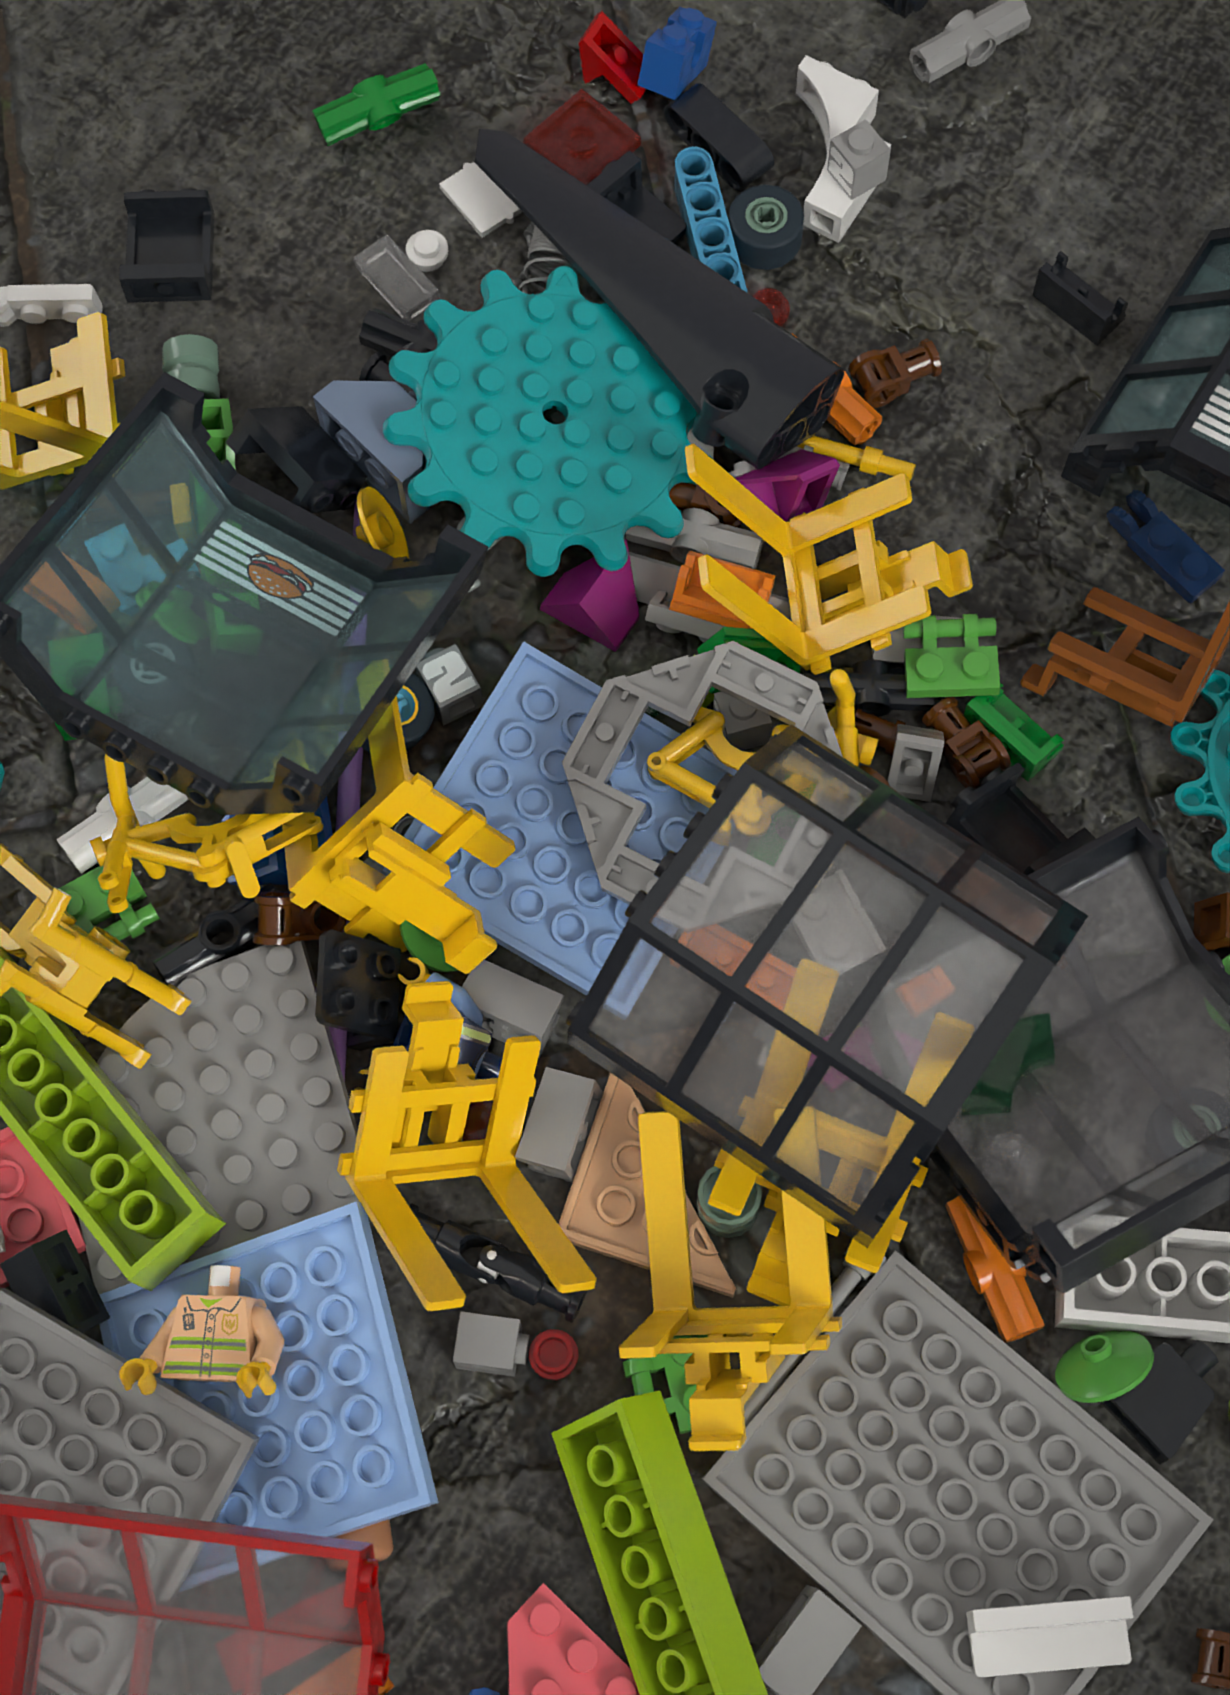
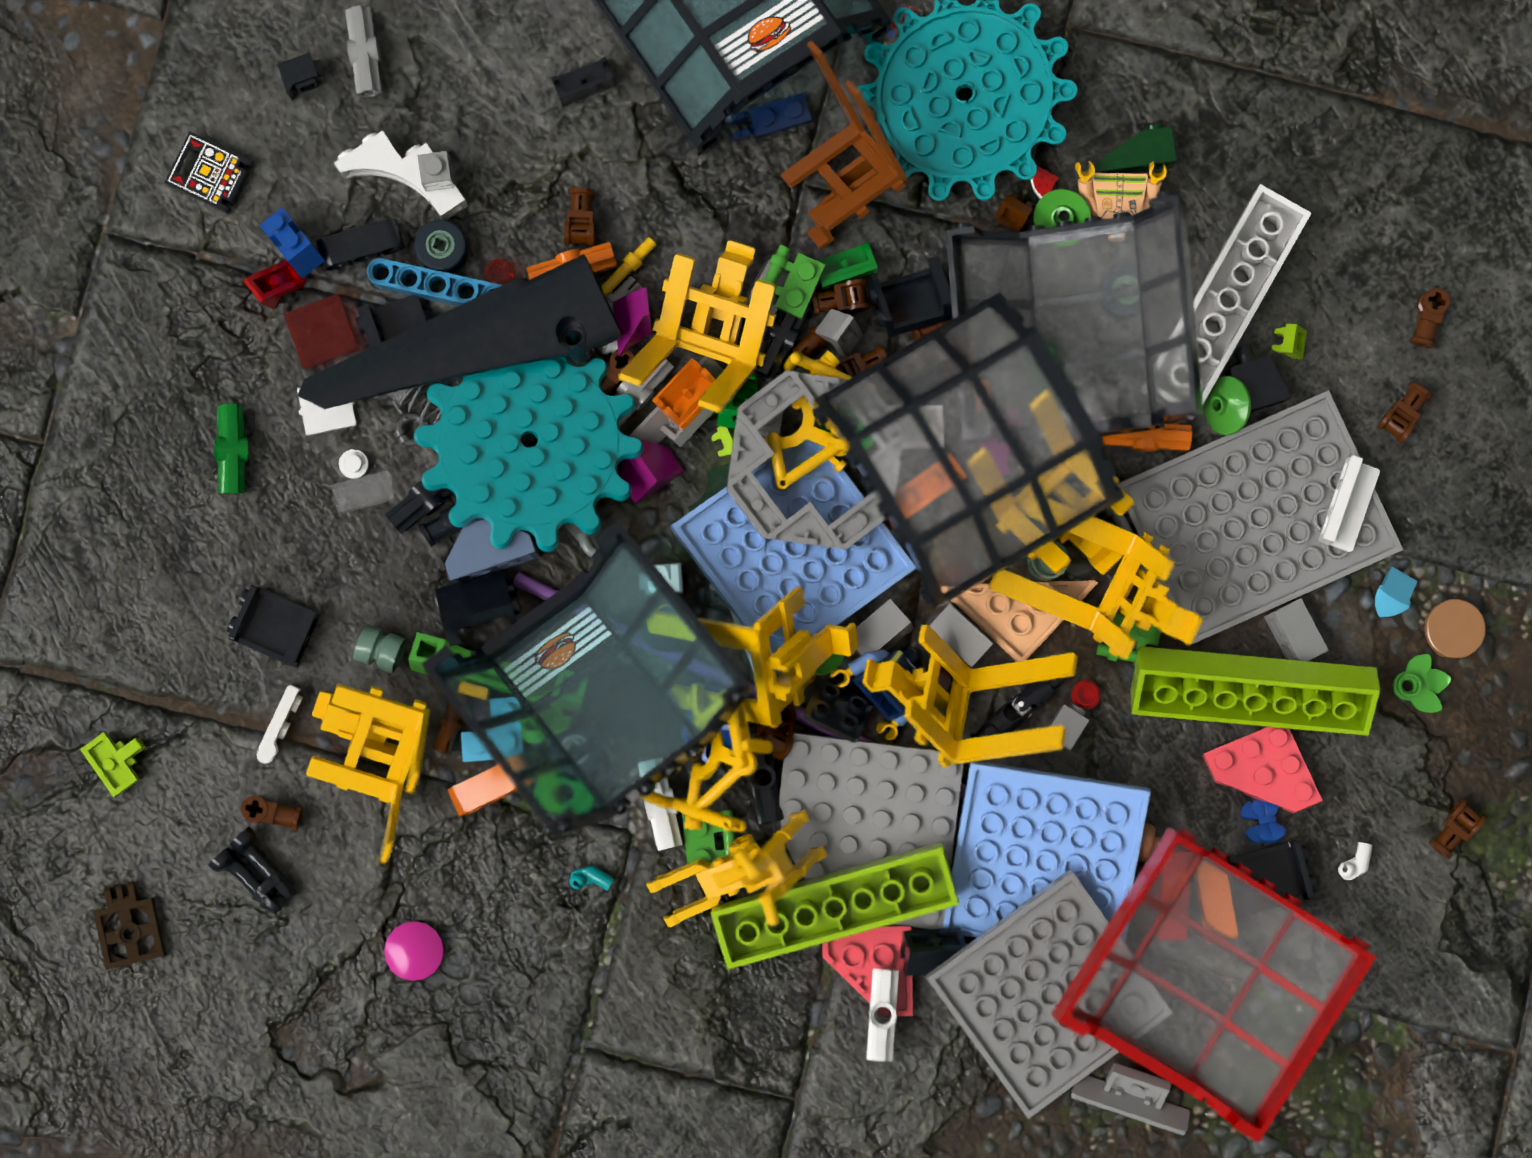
camera: 65 degrees left, 15 degrees up
(212, 1340) = (1009, 871): torso -> none
(379, 524) = (546, 576): yellow dish -> none

